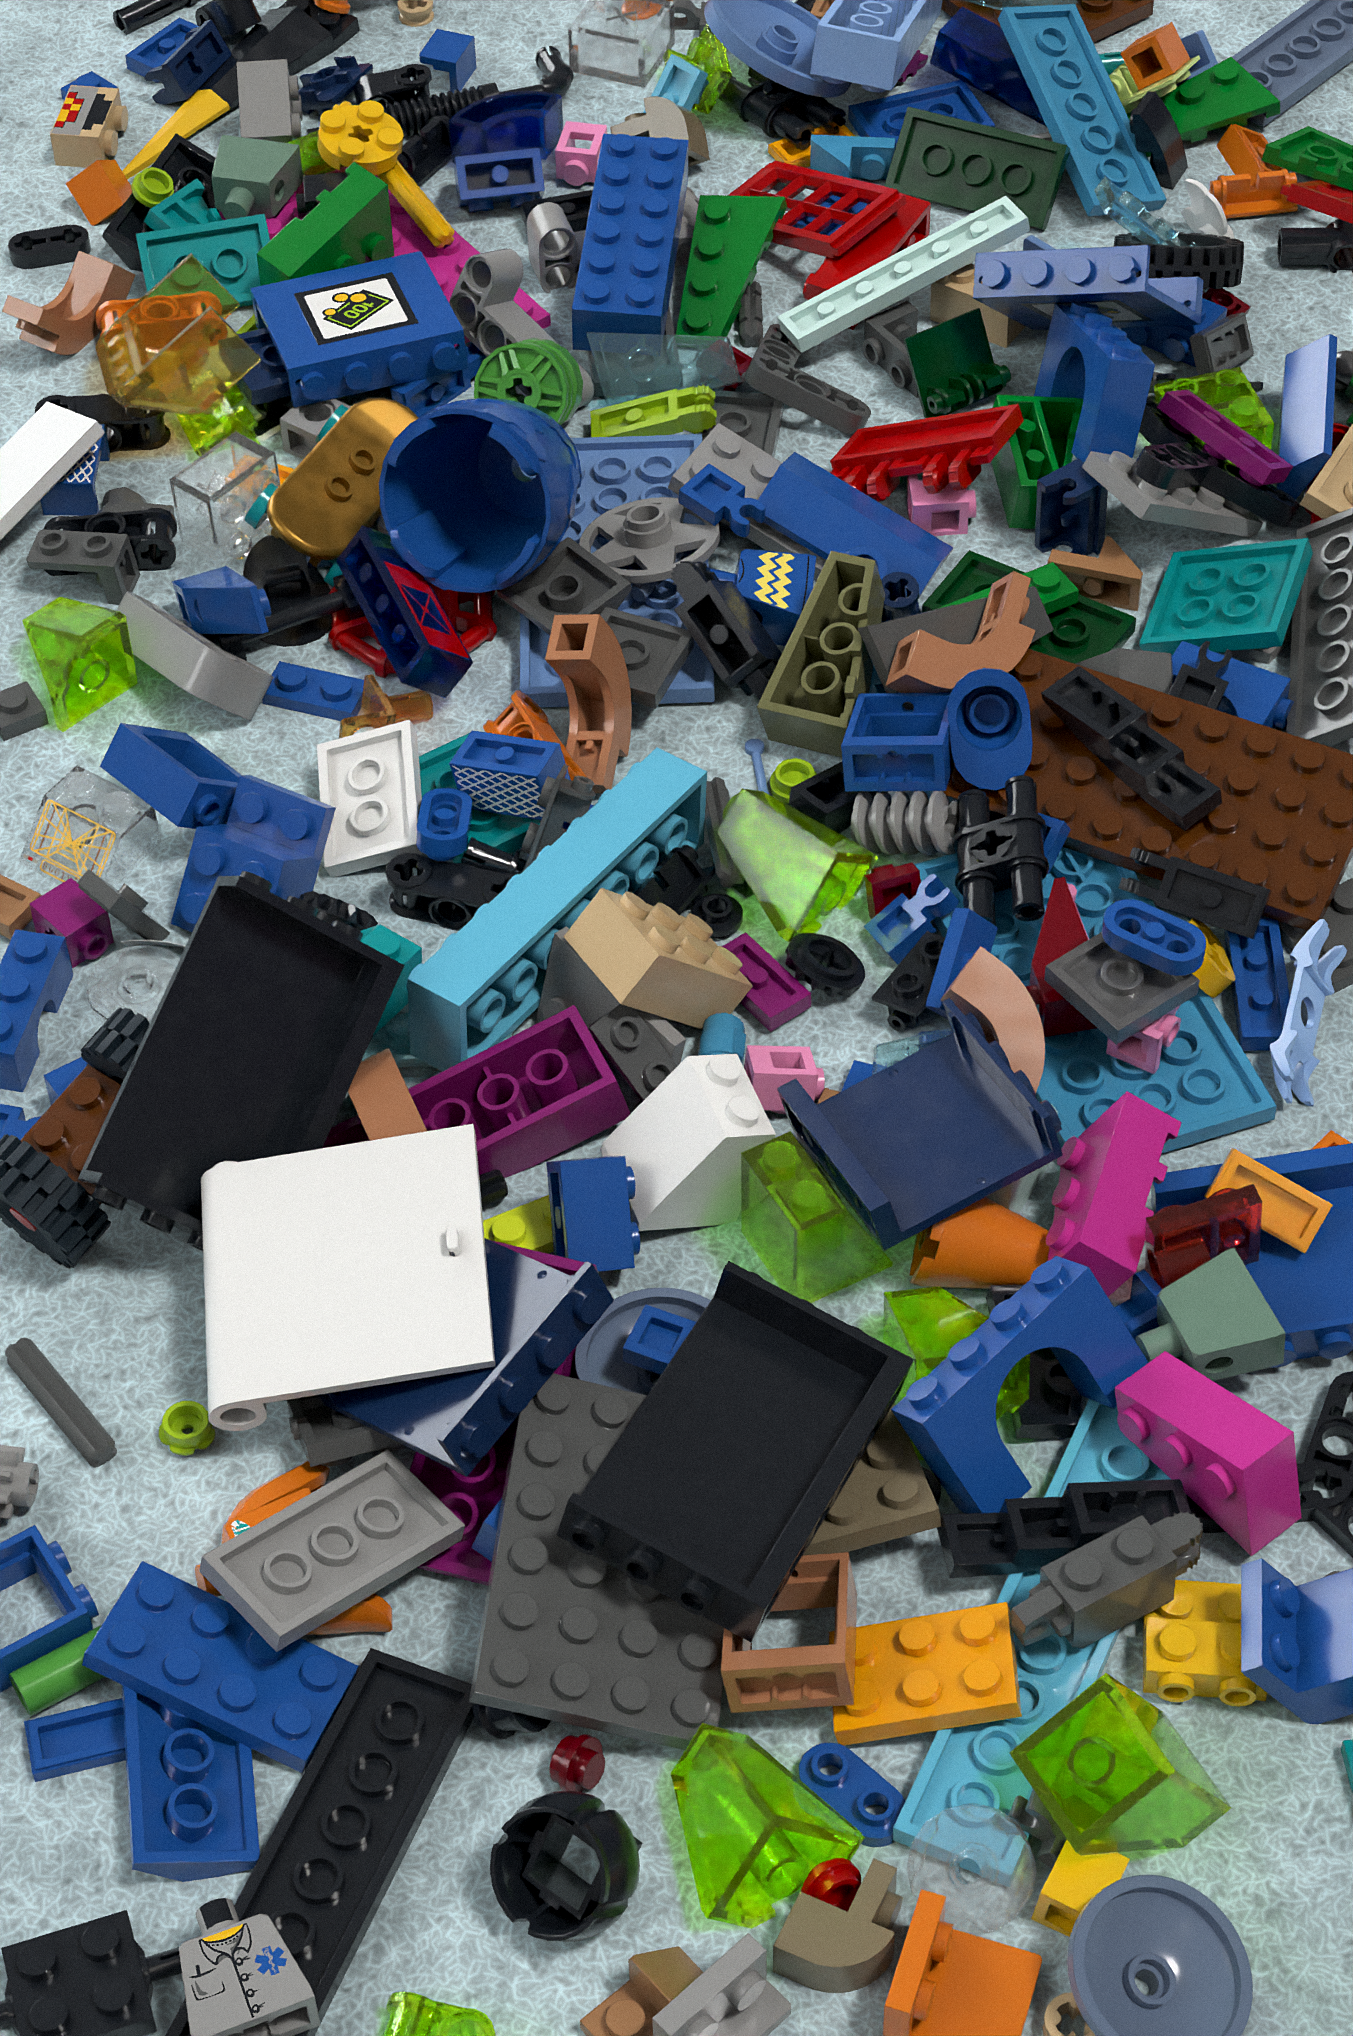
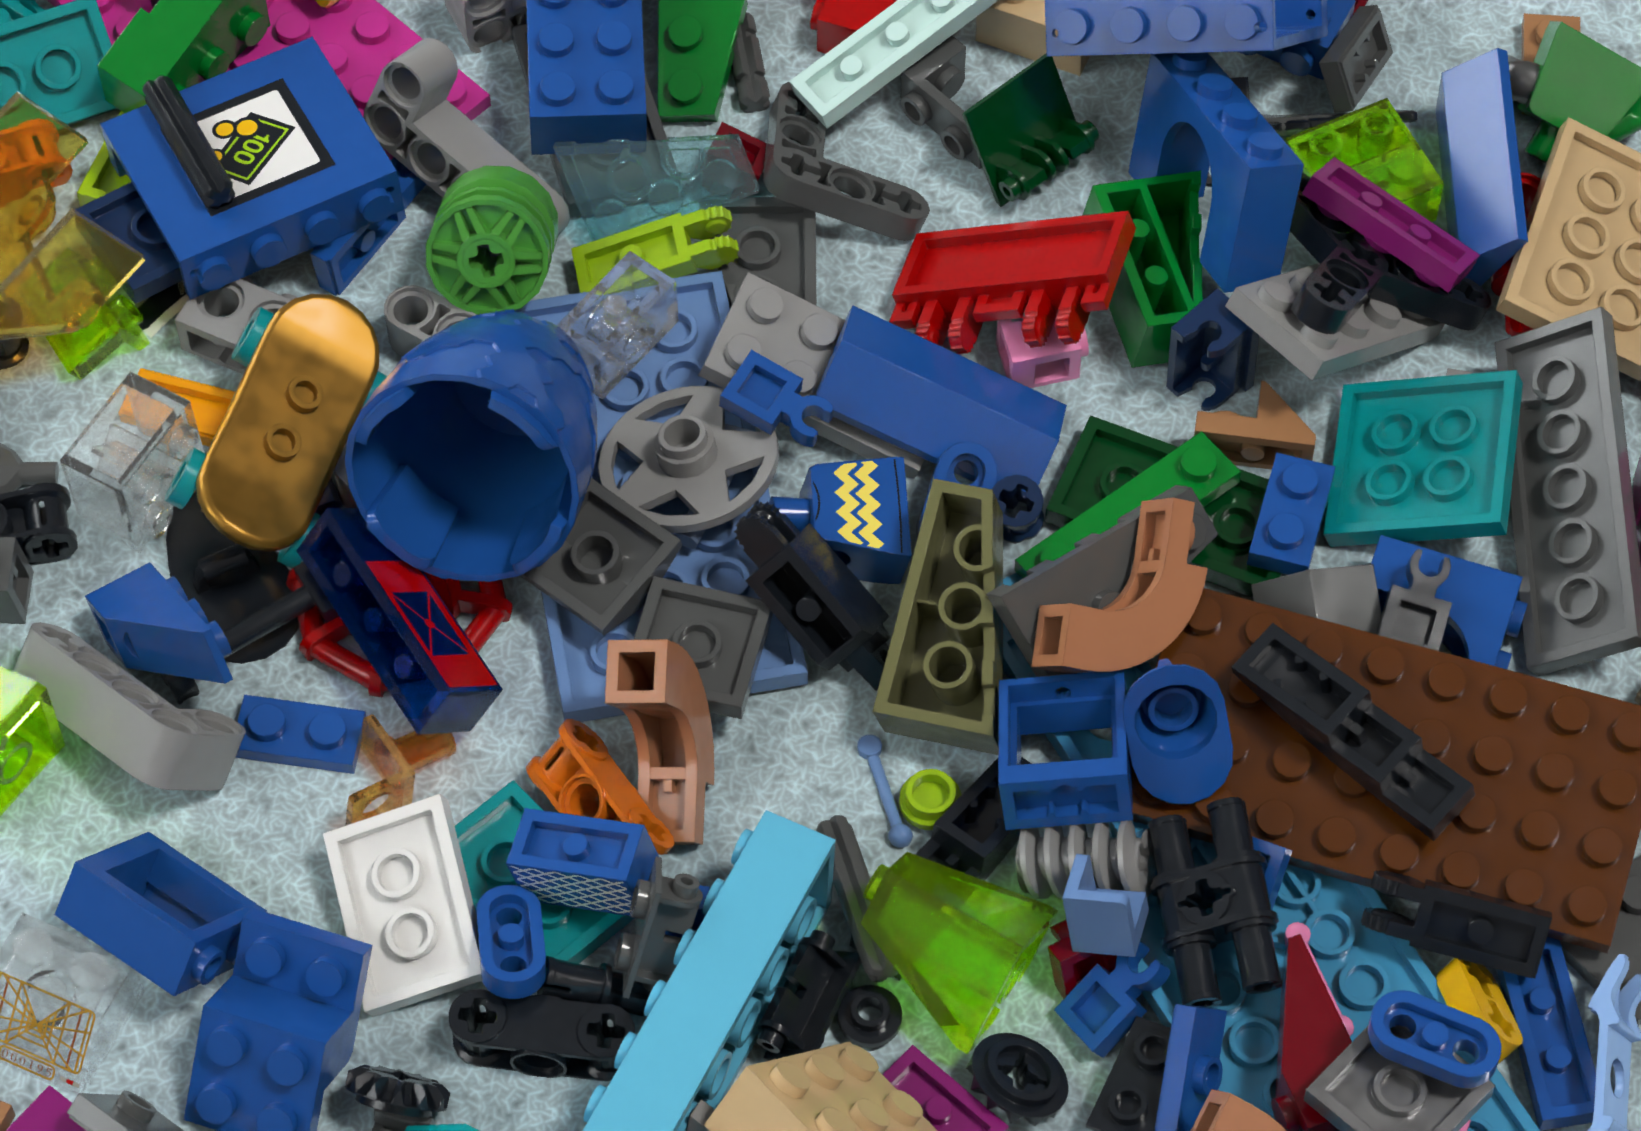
camera: 10 degrees left, 10 degrees up
(311, 298) = (188, 141): none -> black axle
(616, 445) = (622, 320): none -> clear brick
(907, 847) = (1102, 918): none -> medium blue panel
(1114, 620) = (1291, 515): none -> blue plate

